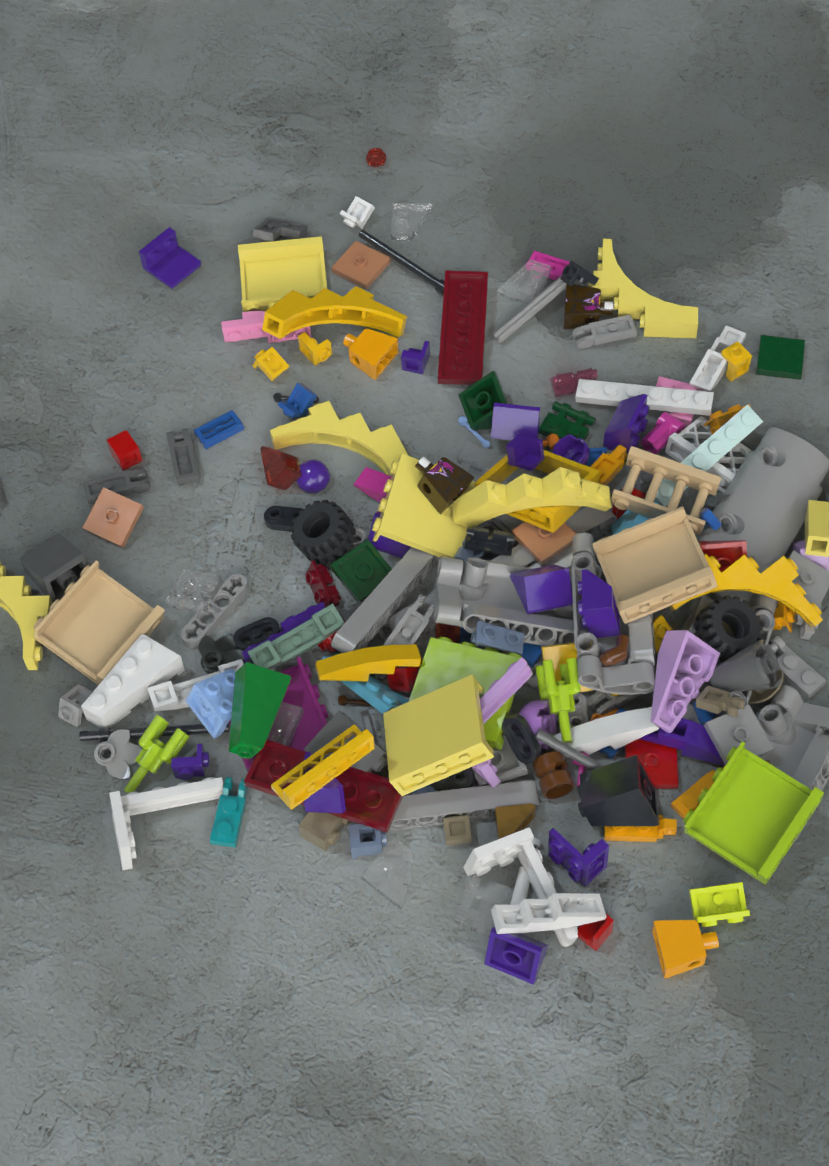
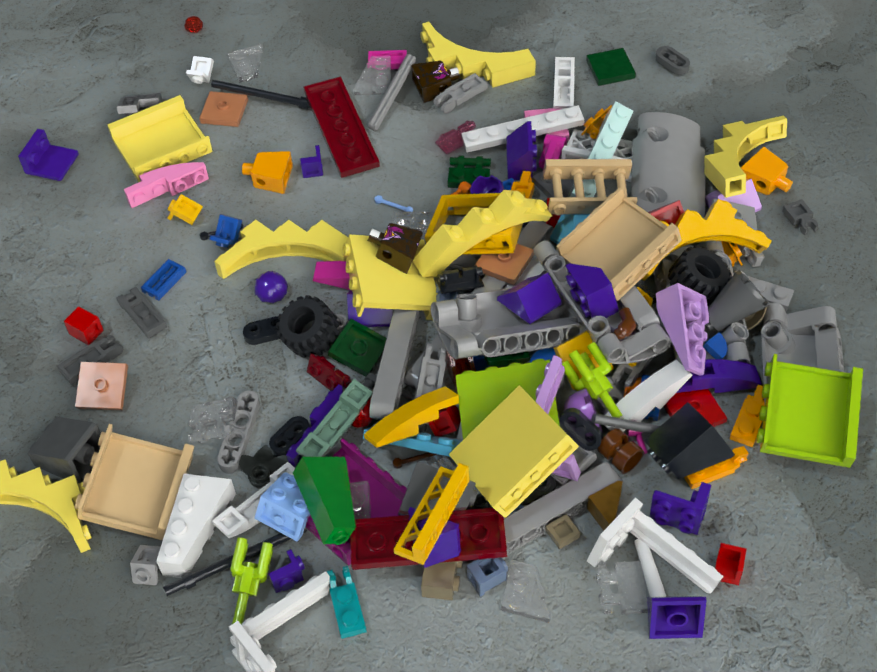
camera: 25 degrees left, 5 degrees down
(122, 754) = (214, 591): light grey plate -> none
(280, 468) = (239, 289): clear red slope -> none
(312, 350) = (218, 187): yellow bracket -> none
(326, 307) = (239, 140): yellow arch -> none
(480, 399) = (393, 176): dark green slope -> none
(498, 637) = (516, 351): sand blue hinge -> none
(513, 420) = (429, 180): slope -> none
(525, 452) = (454, 198): dark purple panel -> none
(556, 912) = (691, 566): white slope -> none
(574, 271) = (418, 52): black bracket -> none
(681, 945) = (809, 548): light orange torso -> none
(711, 521) = (636, 191): blue tile -> none
(716, 700) = (727, 334): dark tan plate -> none
(718, 903) = (818, 500): neon yellow bracket -> none
(731, 731) = (753, 353): light grey plate -> none
(738, 360) = (582, 76): yellow bracket -> none

